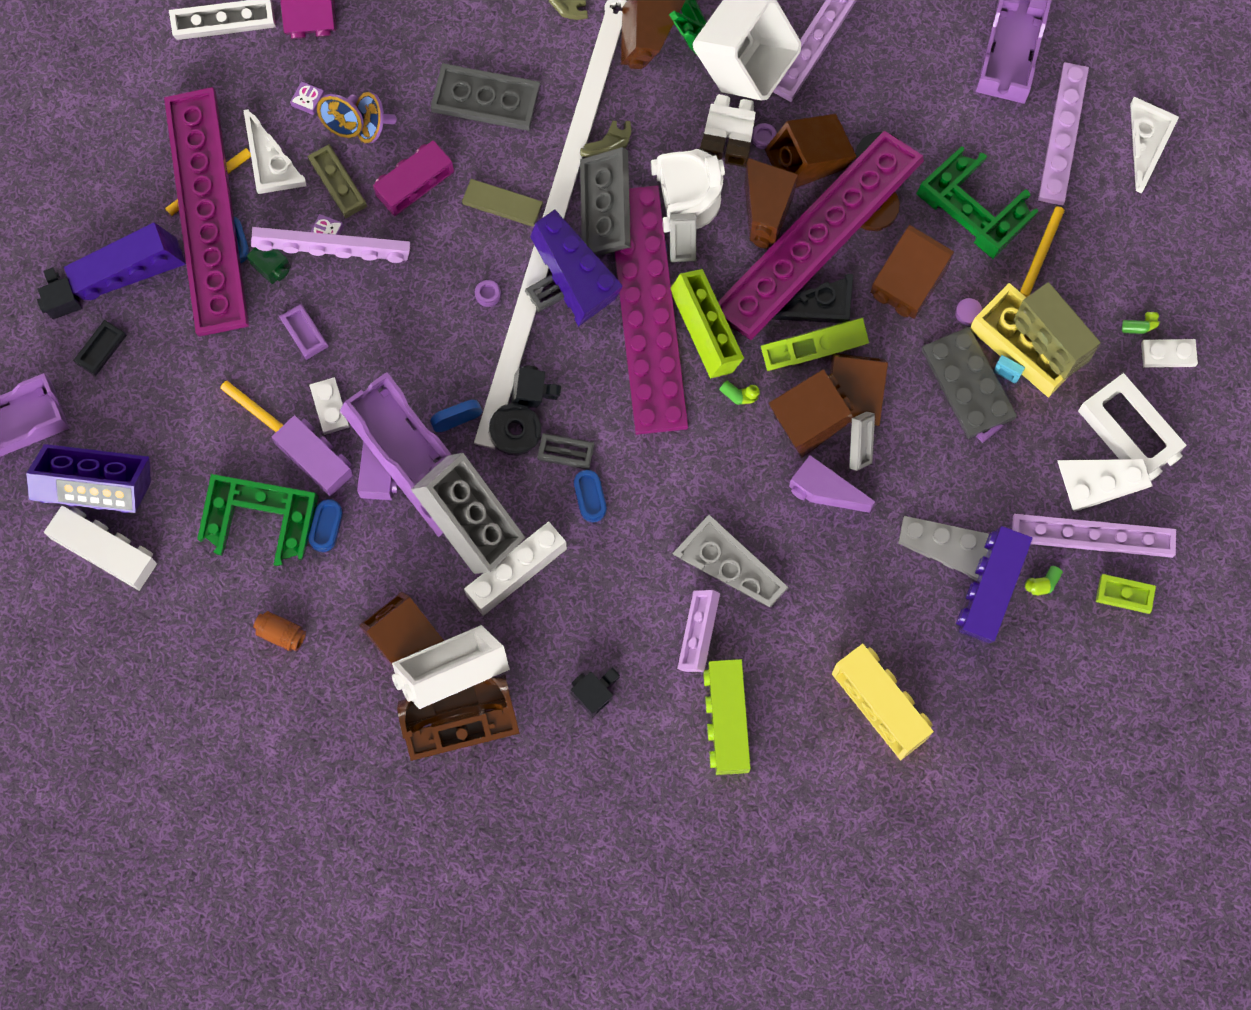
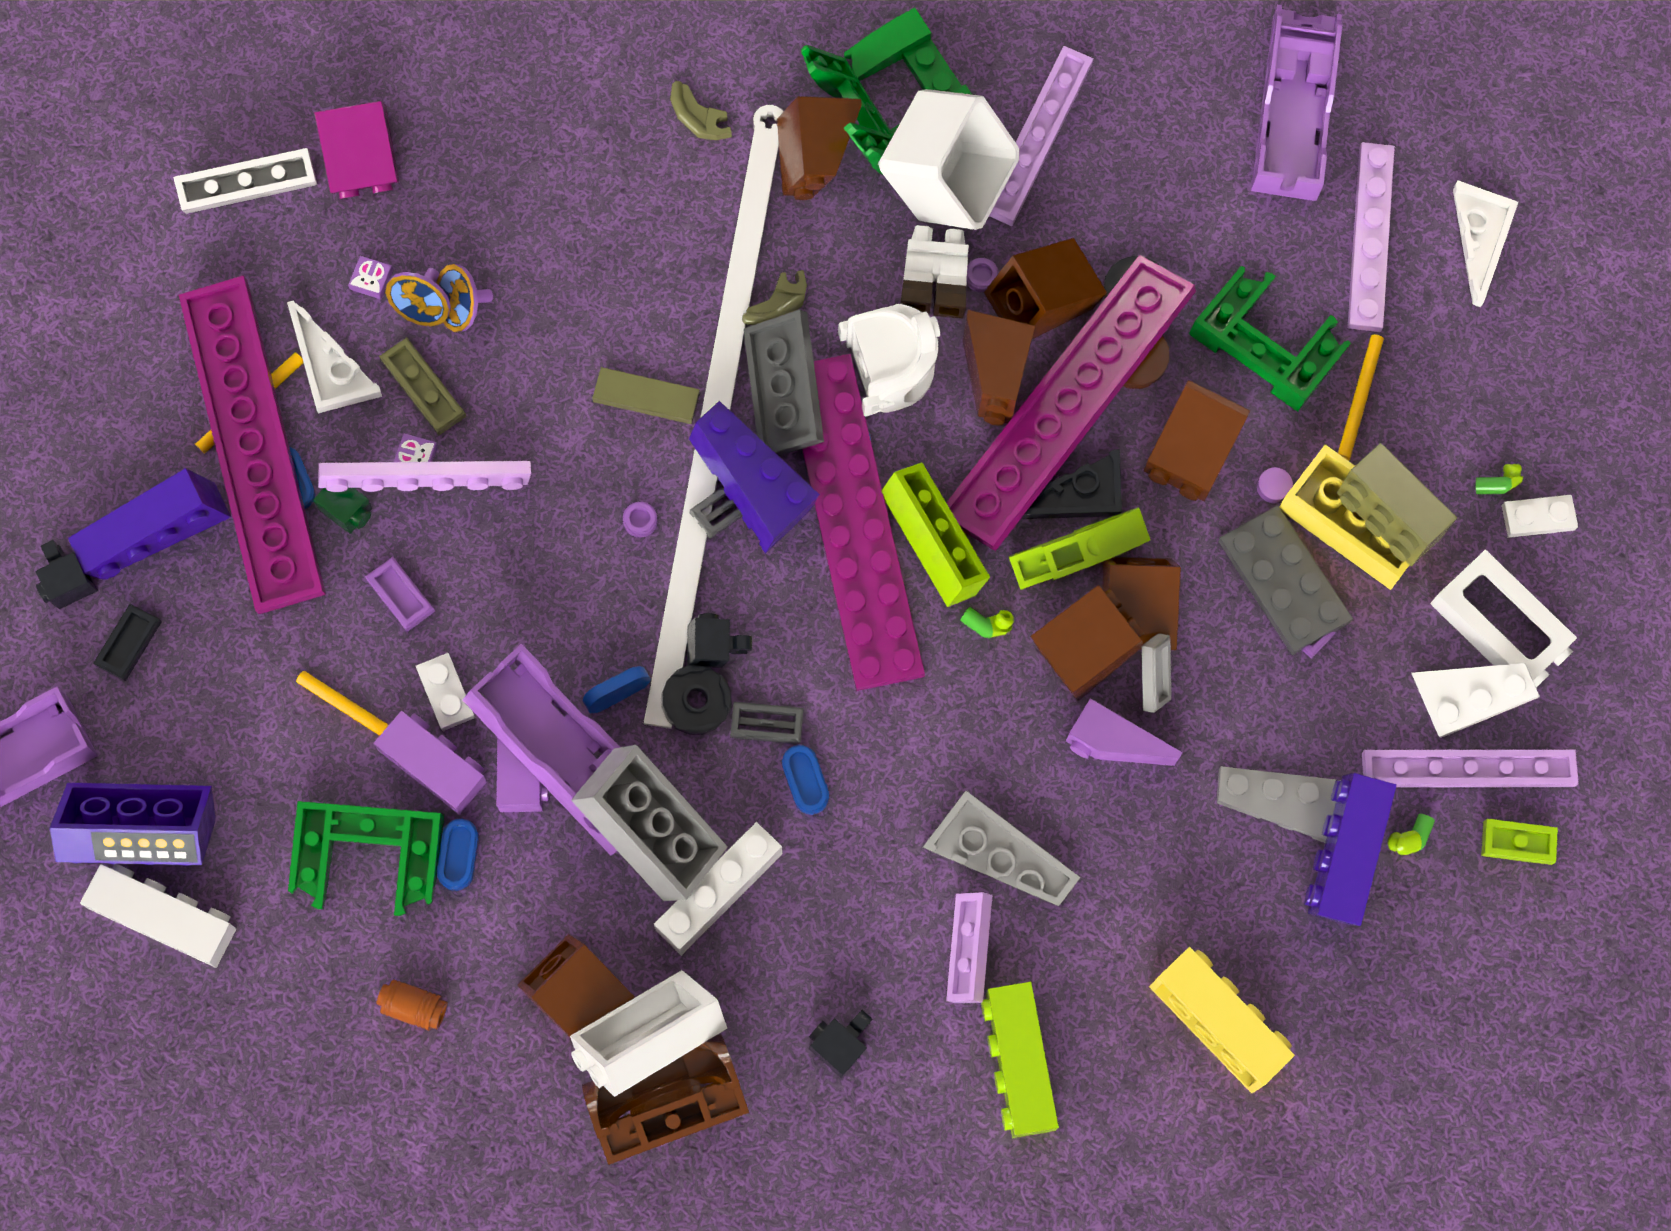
camera: 10 degrees left, 0 degrees up
(413, 177) = (524, 373): magenta brick -> none
(485, 97) = (608, 255): dark grey plate -> none
(683, 237) = (891, 422): light grey tile -> none
(1008, 369) = (1335, 557): medium azure tile -> none

